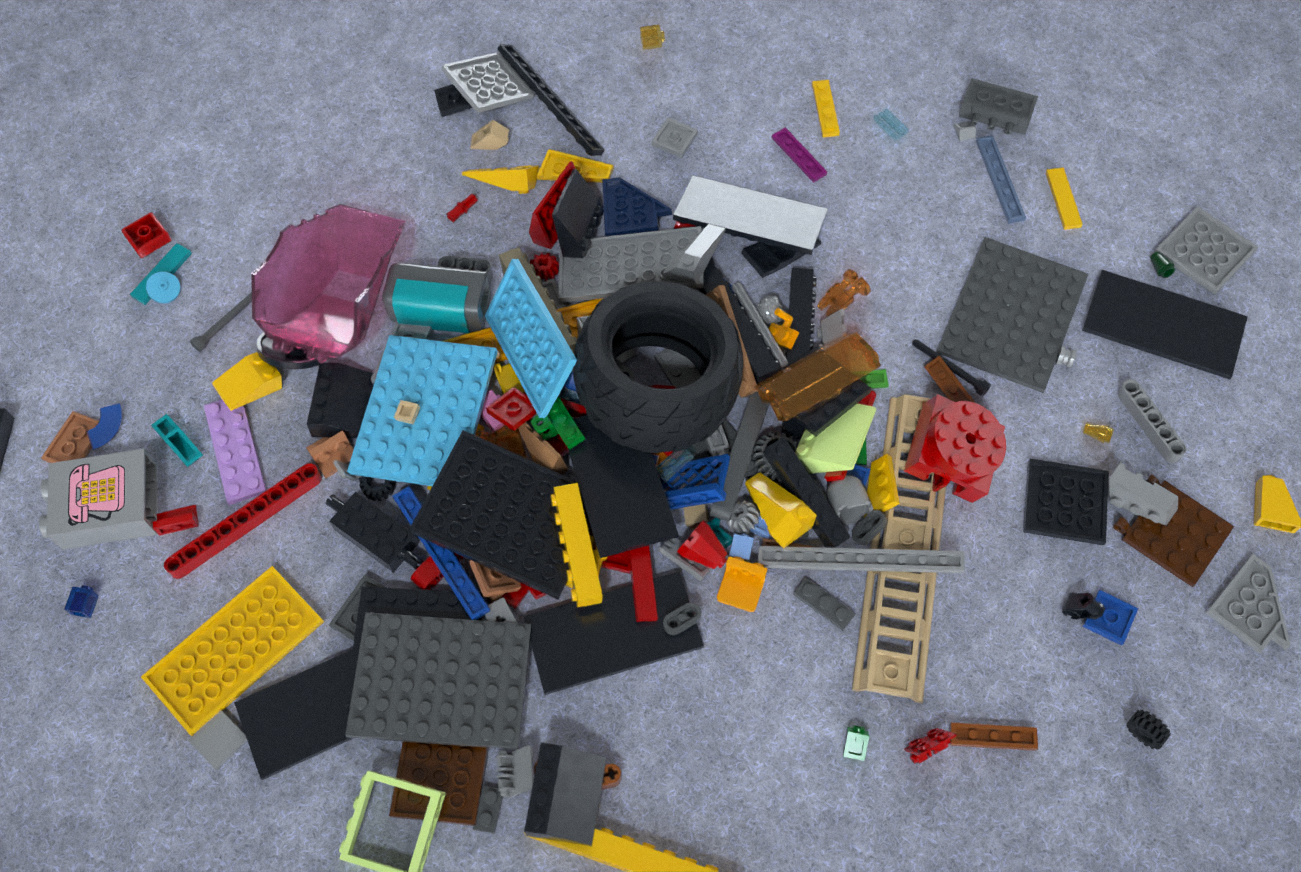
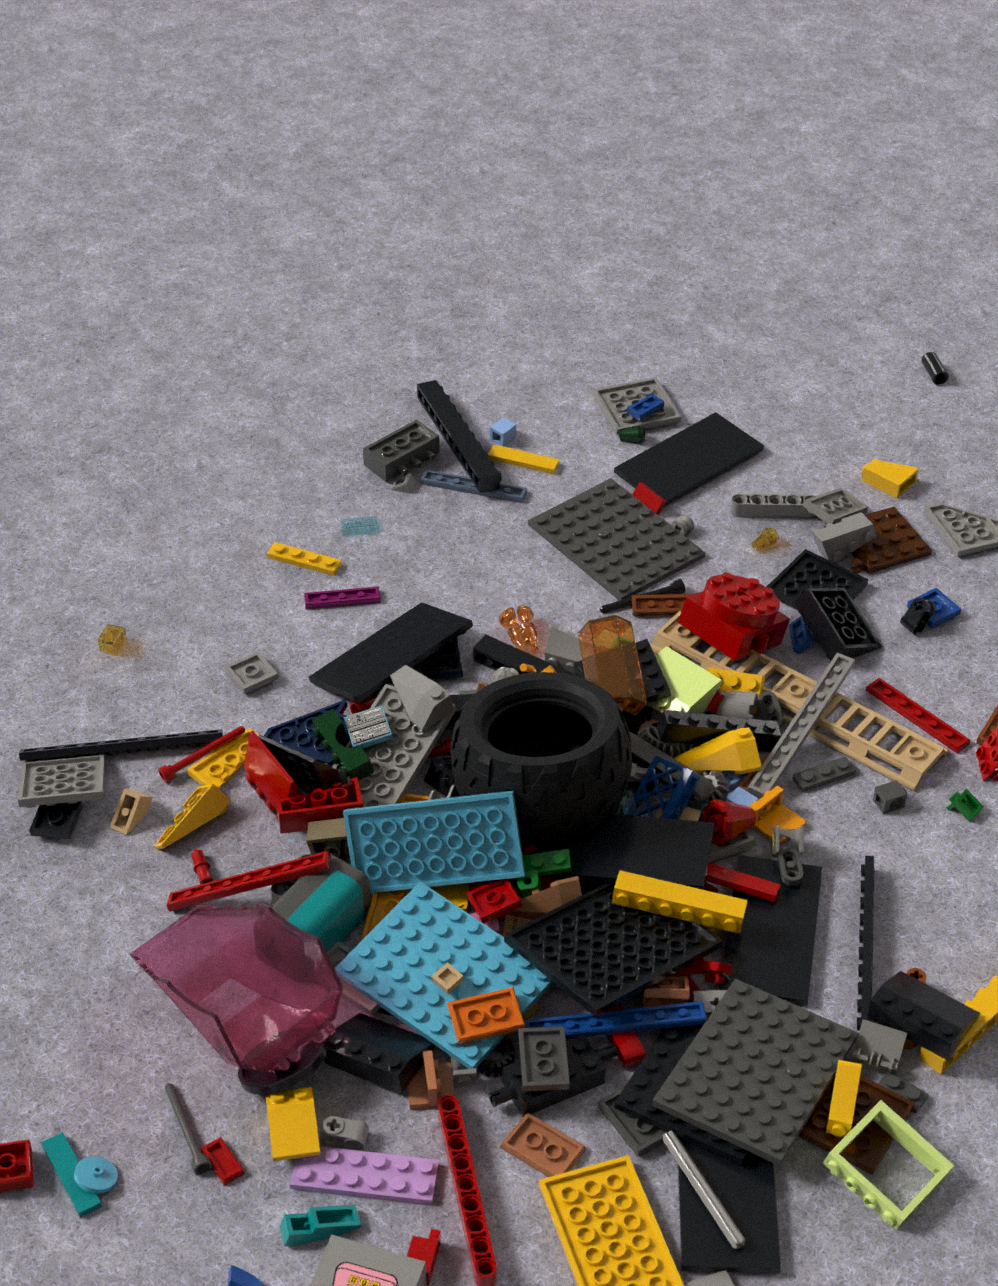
camera: 65 degrees left, 20 degrees down
(209, 355) = (223, 1161): none -> red tile
(260, 419) = (346, 1134): none -> light grey piece
(307, 688) = (704, 1190): none -> light grey axle
(310, 556) = (542, 1146): none -> nougat tile
(366, 515) = (543, 1059): none -> dark grey plate
(389, 456) = (485, 1015): none -> orange tile
(434, 762) = (843, 1098): none -> yellow slope
(445, 241) = (249, 881): none -> red tile
(535, 605) = (715, 969): none -> red tile
(540, 140) = (168, 772): none -> red piece
(543, 252) = (320, 805): none -> red wedge
(628, 215) = (351, 760): none -> dark green arch
(642, 715) = (865, 970): none -> black plate
(644, 238) = (368, 727): none -> tile
(708, 594) = (795, 835): none -> light grey piece
(825, 671) = (890, 797): none -> dark grey brick
(952, 658) = (918, 715): none -> red tile
(990, 512) = (800, 635): none -> blue plate
(1020, 538) = (836, 622): none -> black slope
(1049, 136) = (458, 436): none -> black brick
(1081, 314) = (649, 498): none -> red tile
(1084, 166) = (502, 432): none -> light blue brick
(1183, 472) = (834, 506): none -> light grey plate
(1202, 256) = (645, 407): none -> blue plate

